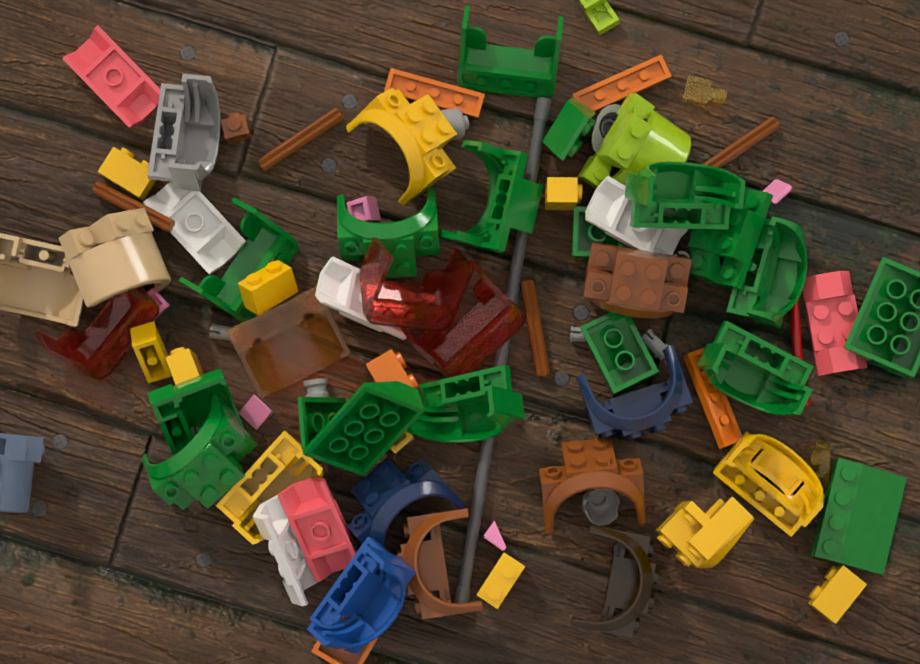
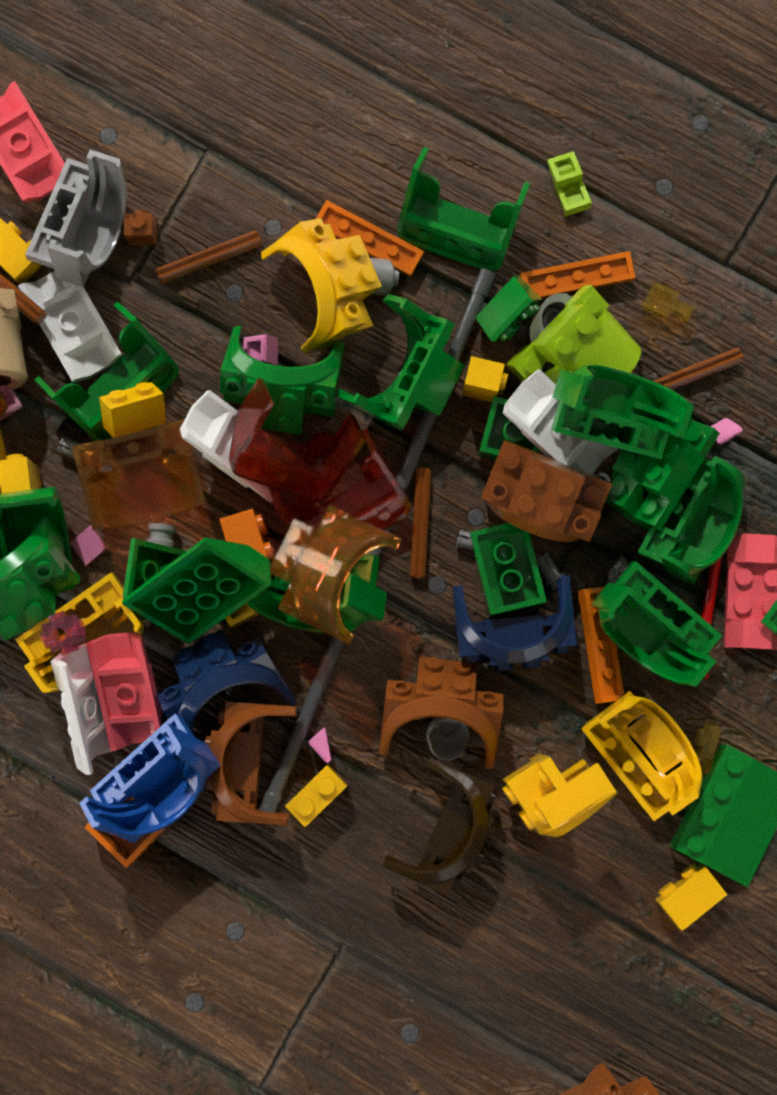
camera: 10 degrees right, 0 degrees up
(267, 488) = (73, 628): none -> clear pink brick
(462, 382) = (318, 565): none -> clear orange piece

